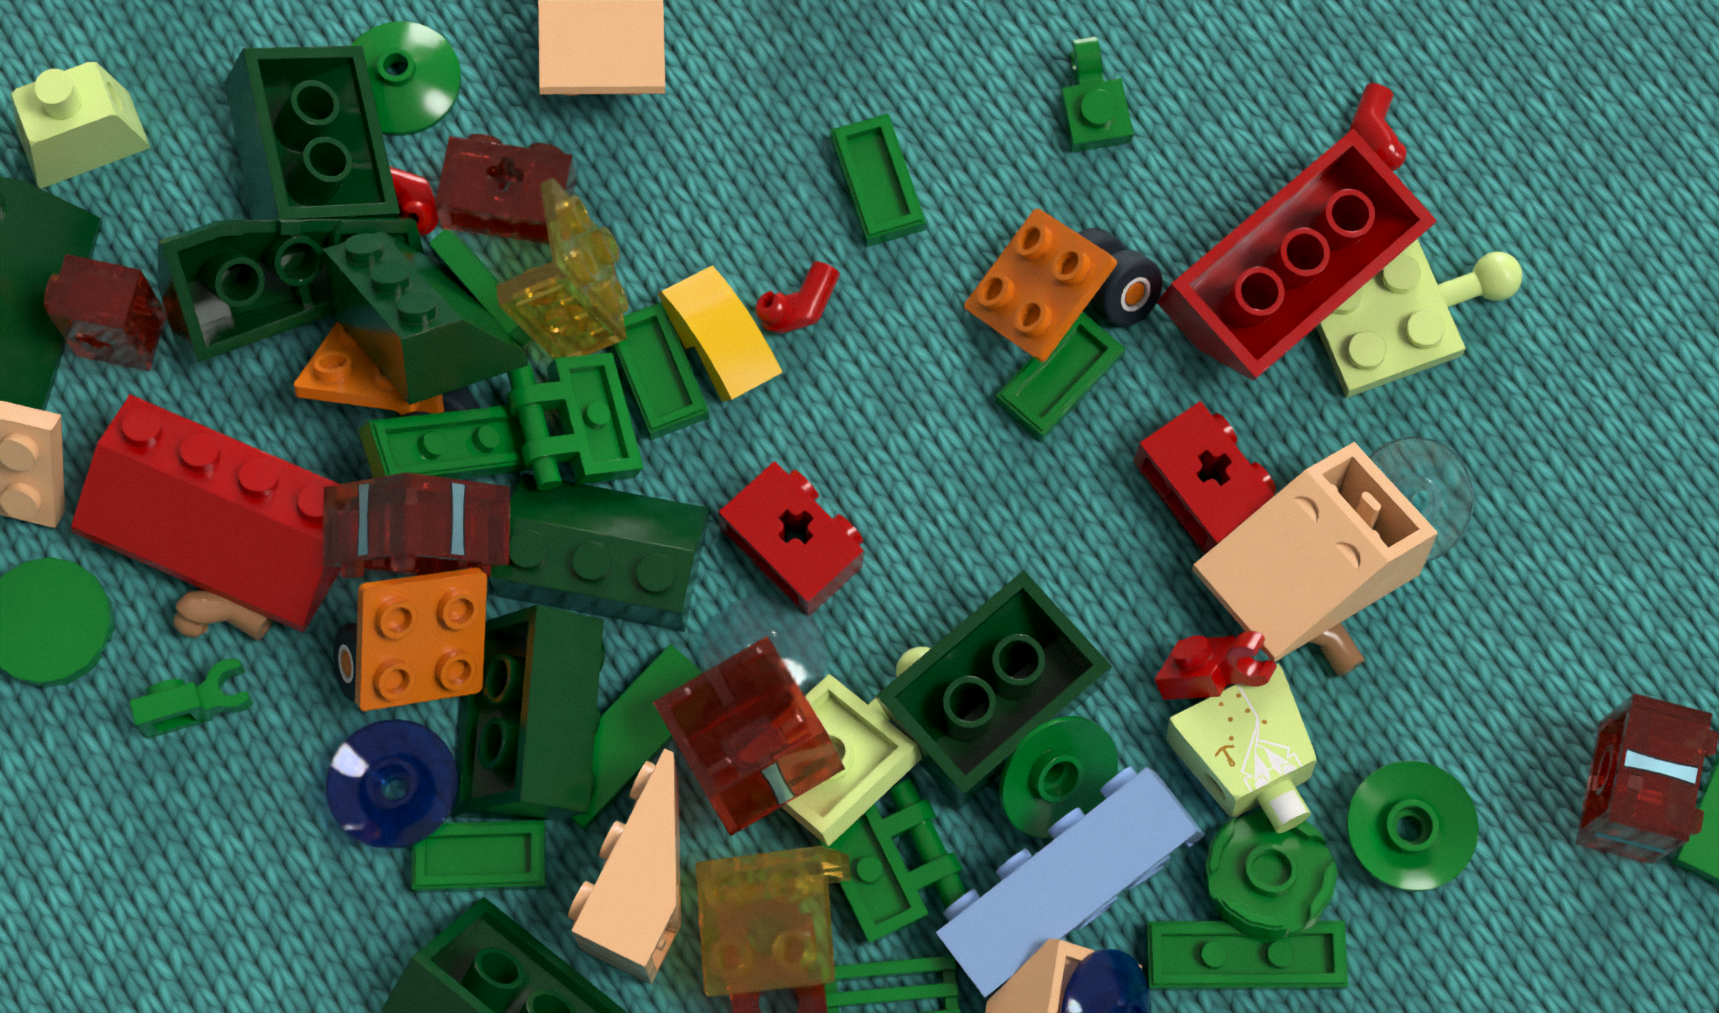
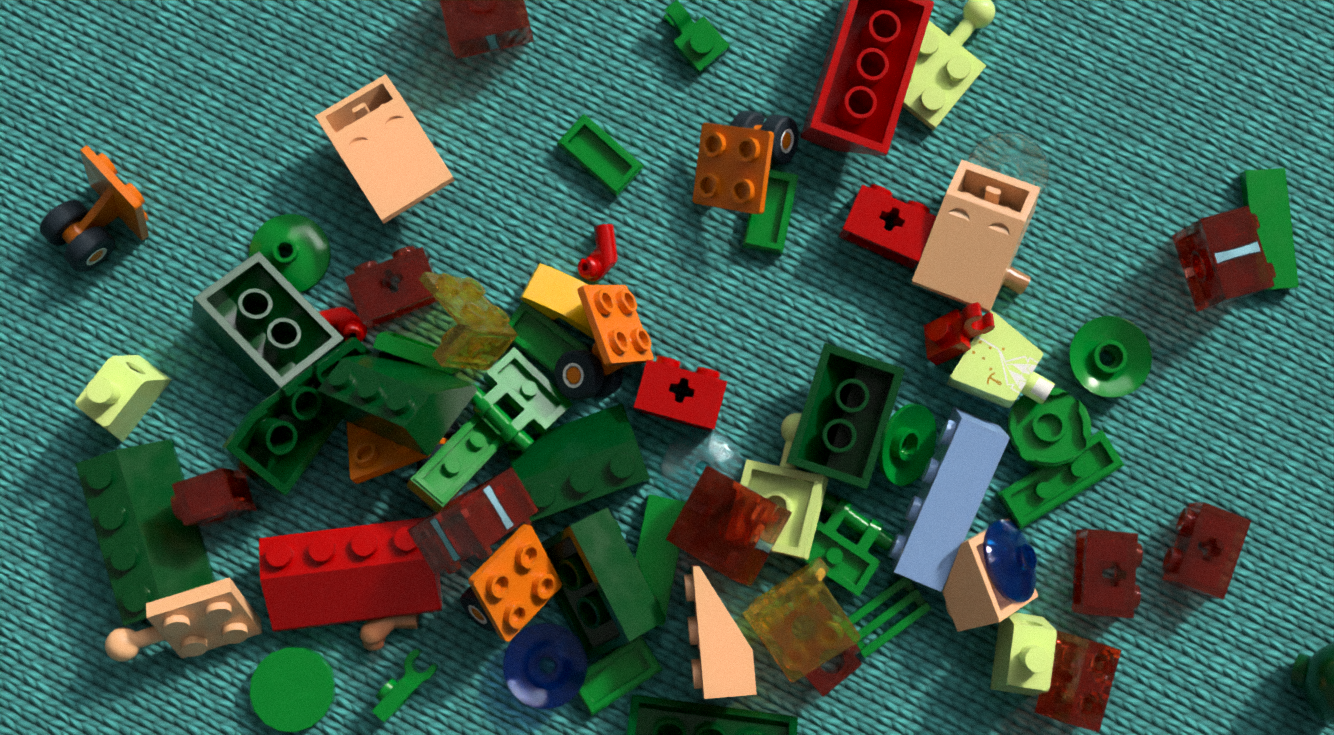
camera: 30 degrees left, 10 degrees up
(752, 413) = (617, 343): none -> orange plate

